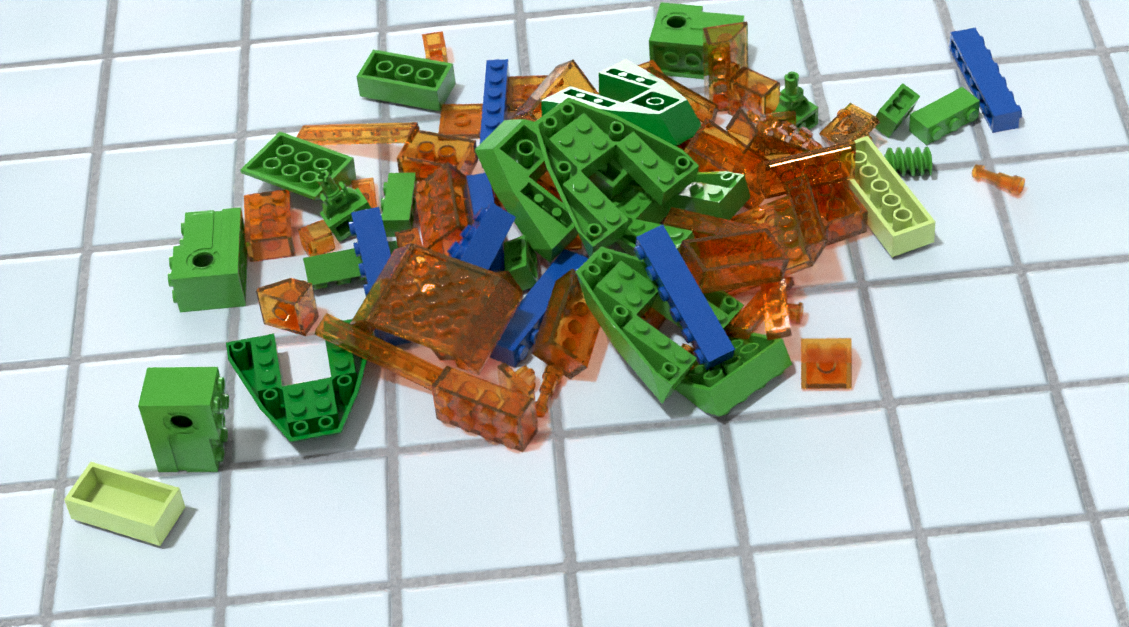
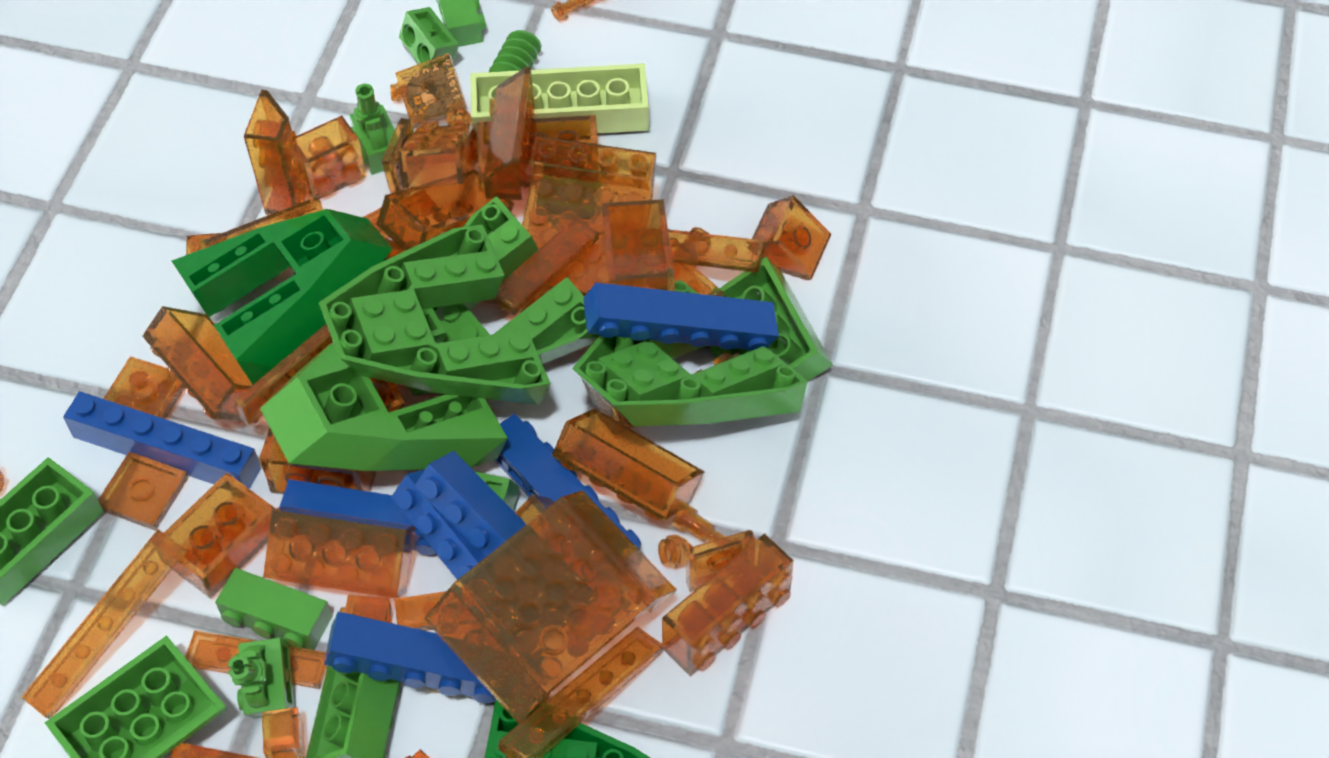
camera: 75 degrees left, 10 degrees up
(678, 38) = (183, 181): bright green piece -> none

